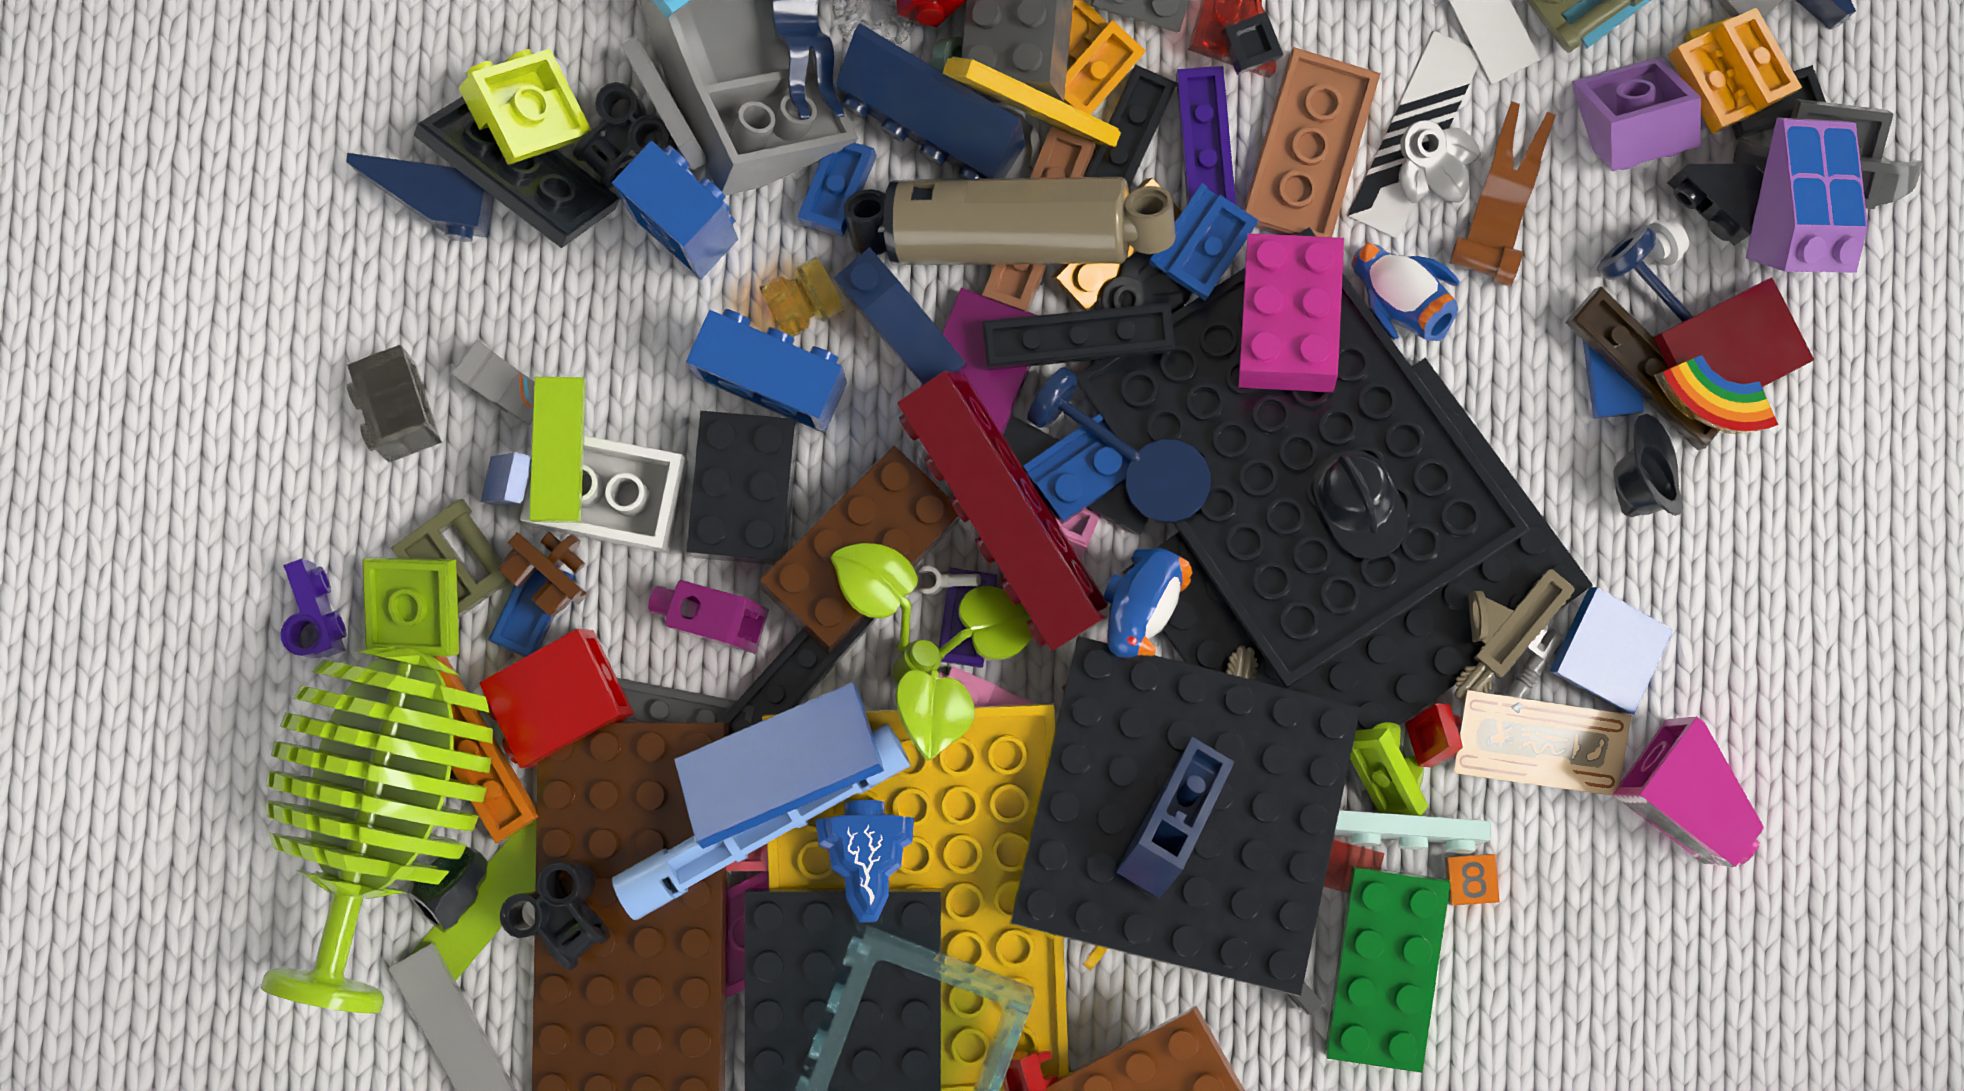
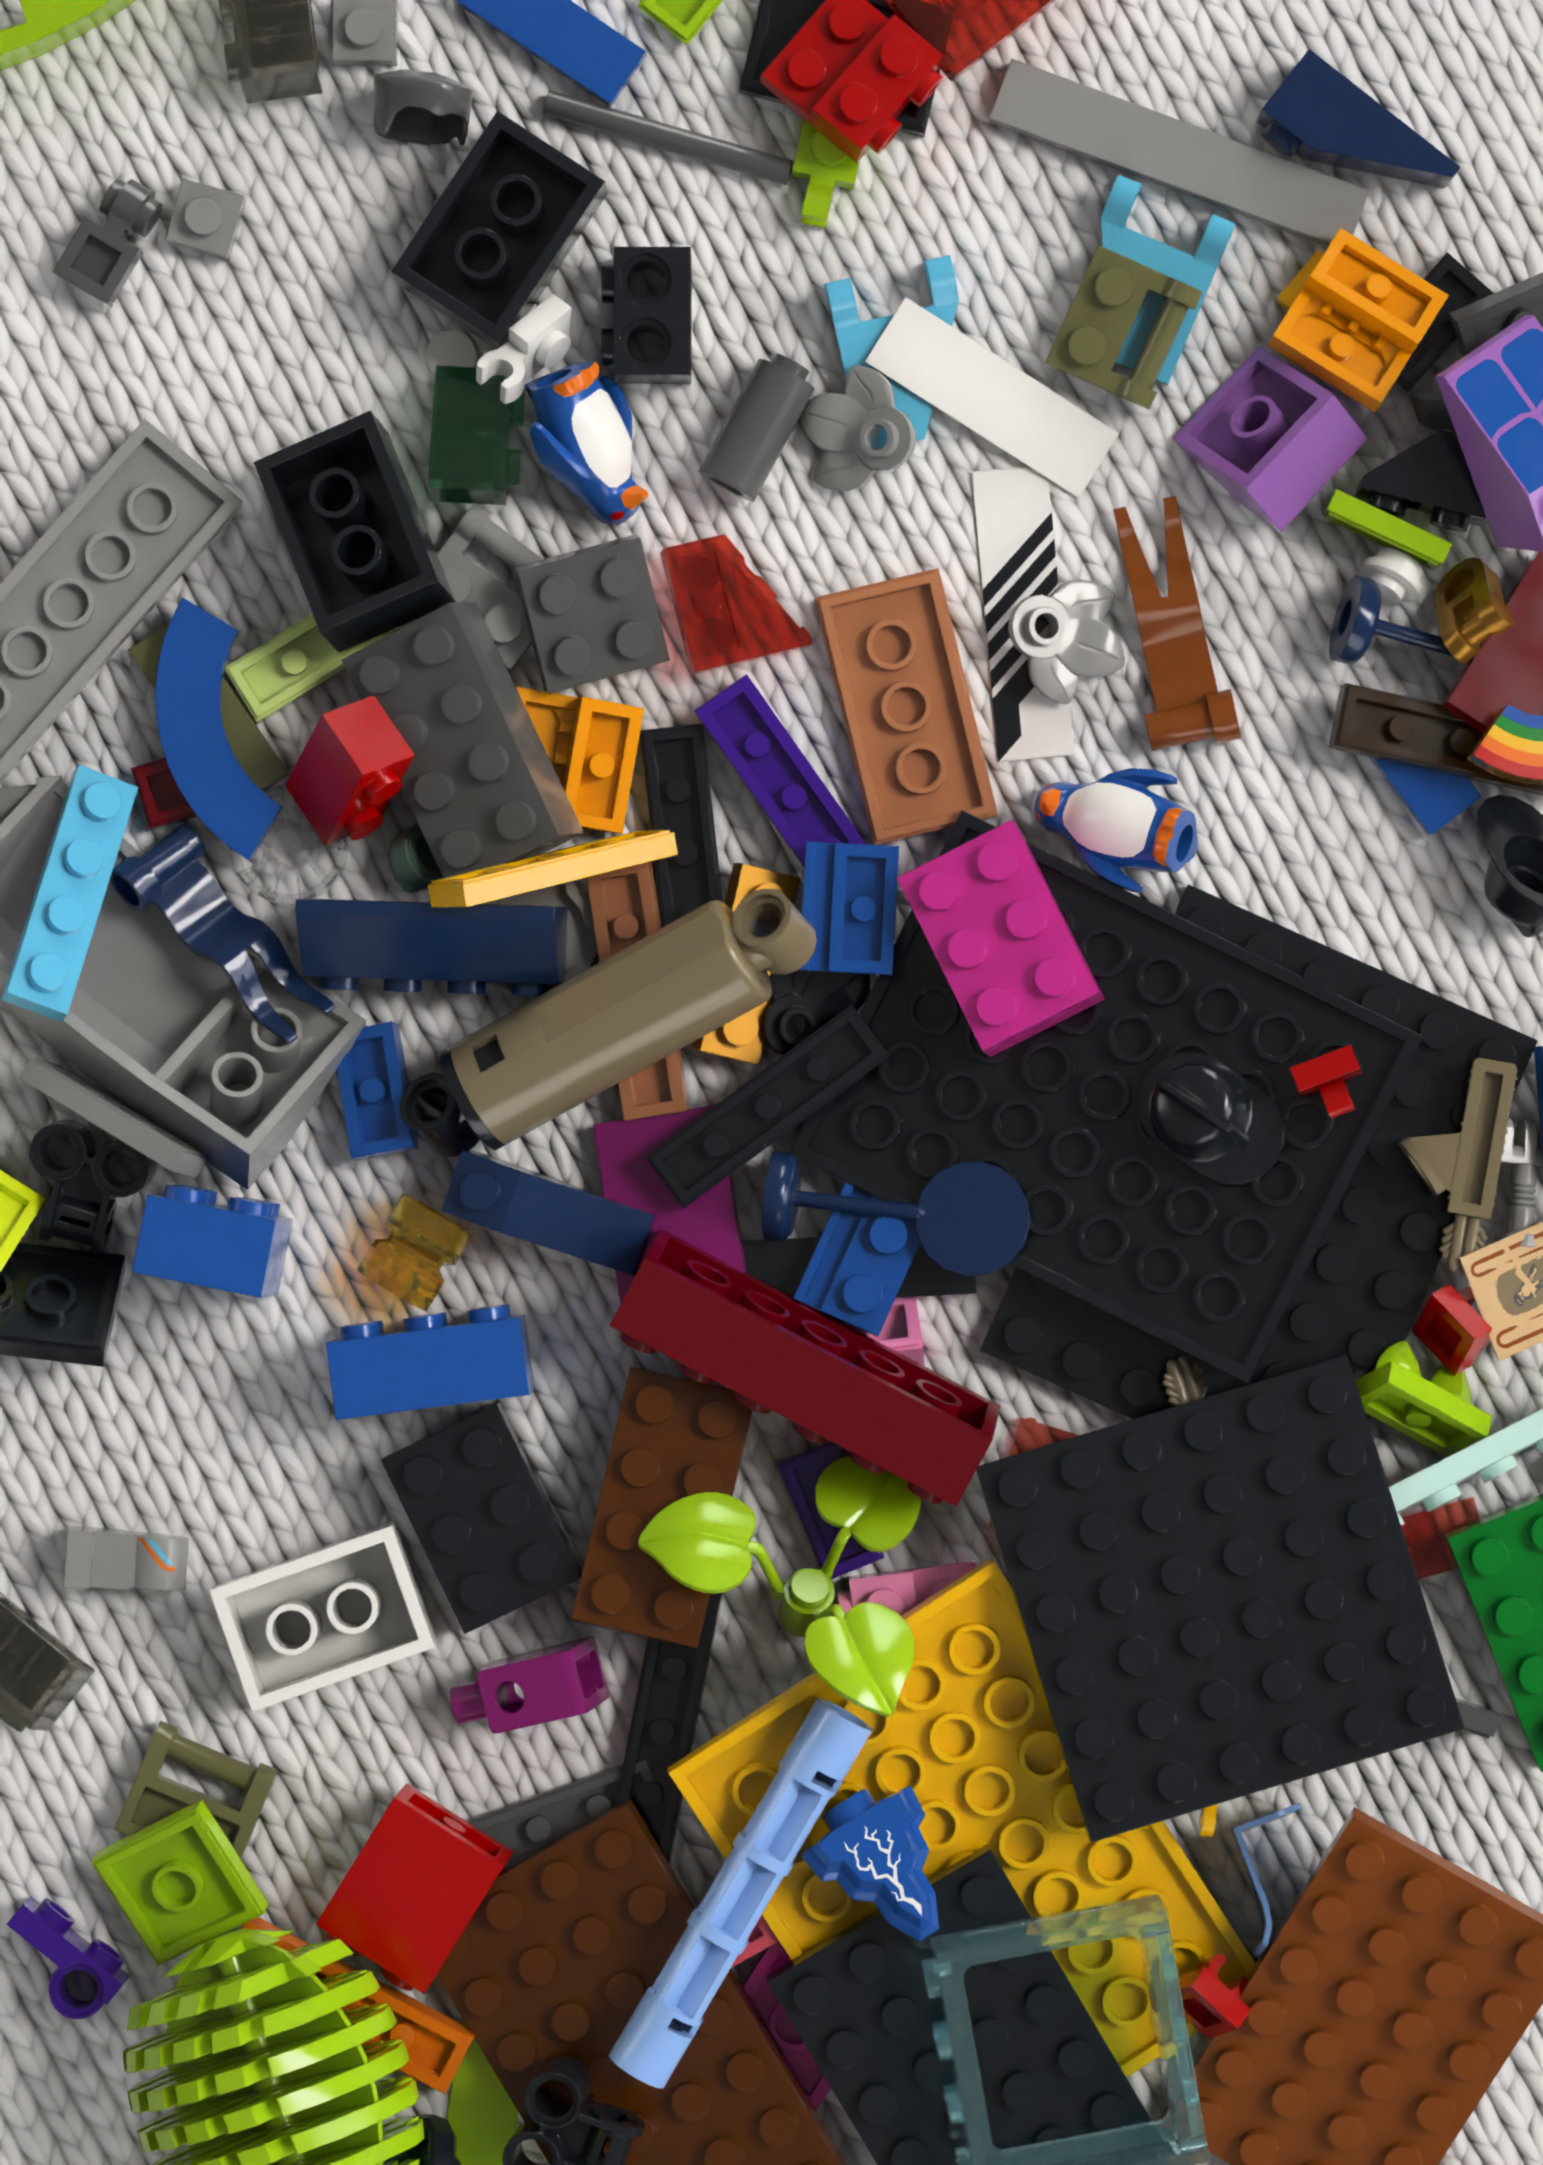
camera: 25 degrees left, 5 degrees up
(506, 479) = (202, 1672): blue tile -> none
(522, 621) = (316, 1799): blue tile -> none
(526, 559) = (283, 1748): reddish brown hips -> none
(557, 449) = (247, 1607): lime tile -> none
(778, 765) = (722, 1820): tile -> none
(947, 580) = (784, 1481): white hand -> none
(1101, 1009) = (1252, 1874): none -> medium blue piece
(1144, 600) = (1027, 1379): blue animal -> none
(1176, 818) = (1208, 1614): dark blue slope -> none
(1251, 43) = (765, 632): black plate -> none
(1455, 516) = (1328, 1076): none -> red tile
(1675, 204) = (1386, 529): none -> lime tile
(1707, 286) = (1470, 608): none -> pearl gold plate

